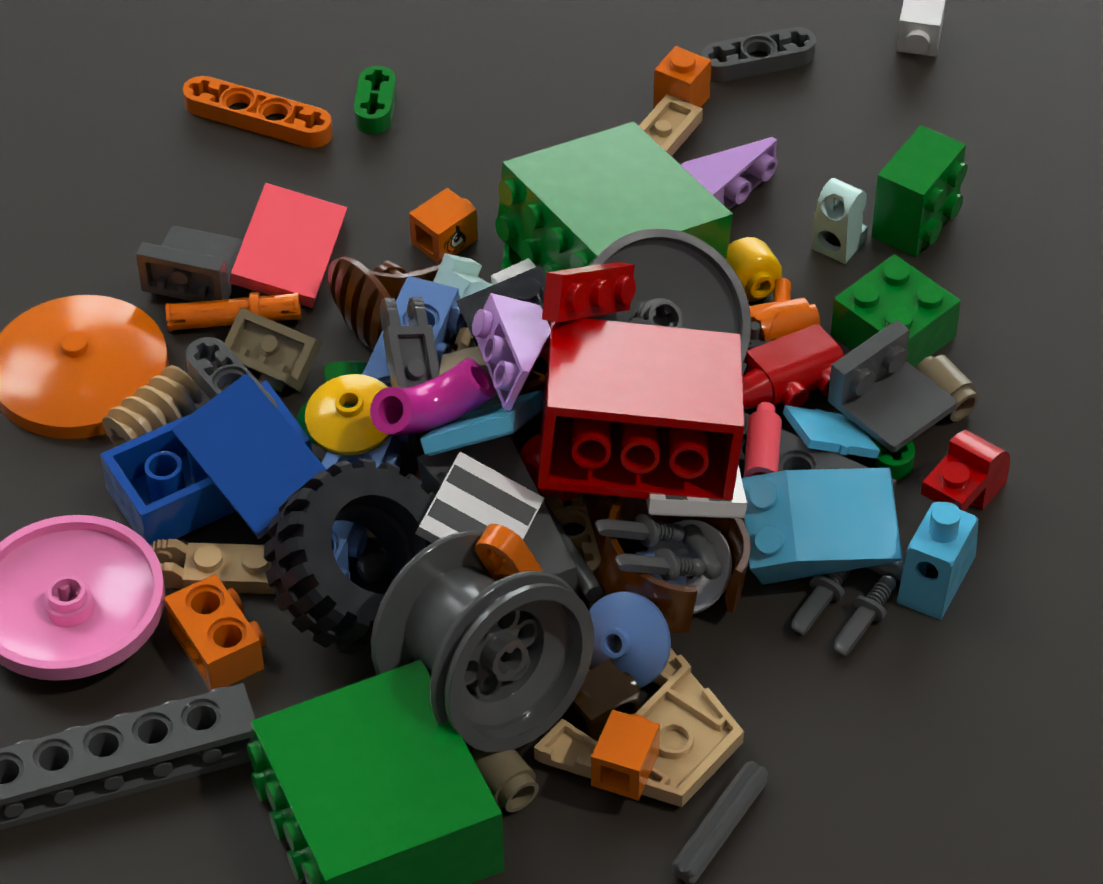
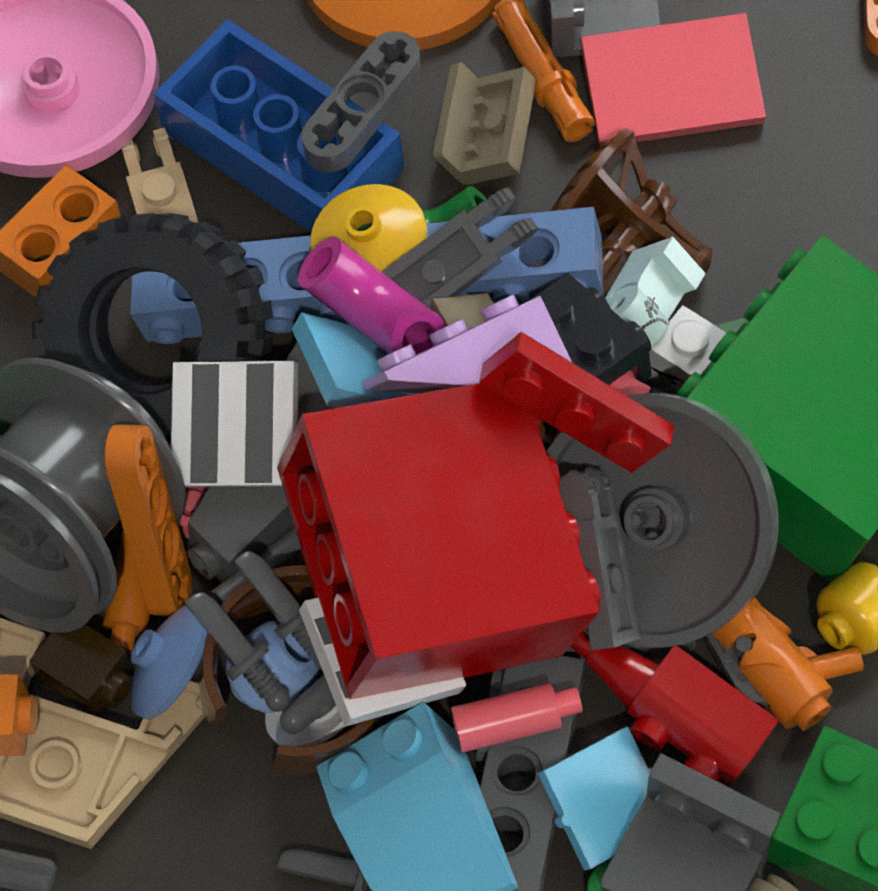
camera: 75 degrees right, 15 degrees up
(153, 406) = (325, 47): tan piece -> none
(248, 452) = (260, 158): blue tile -> none
(443, 225) = (776, 225): orange brick -> none

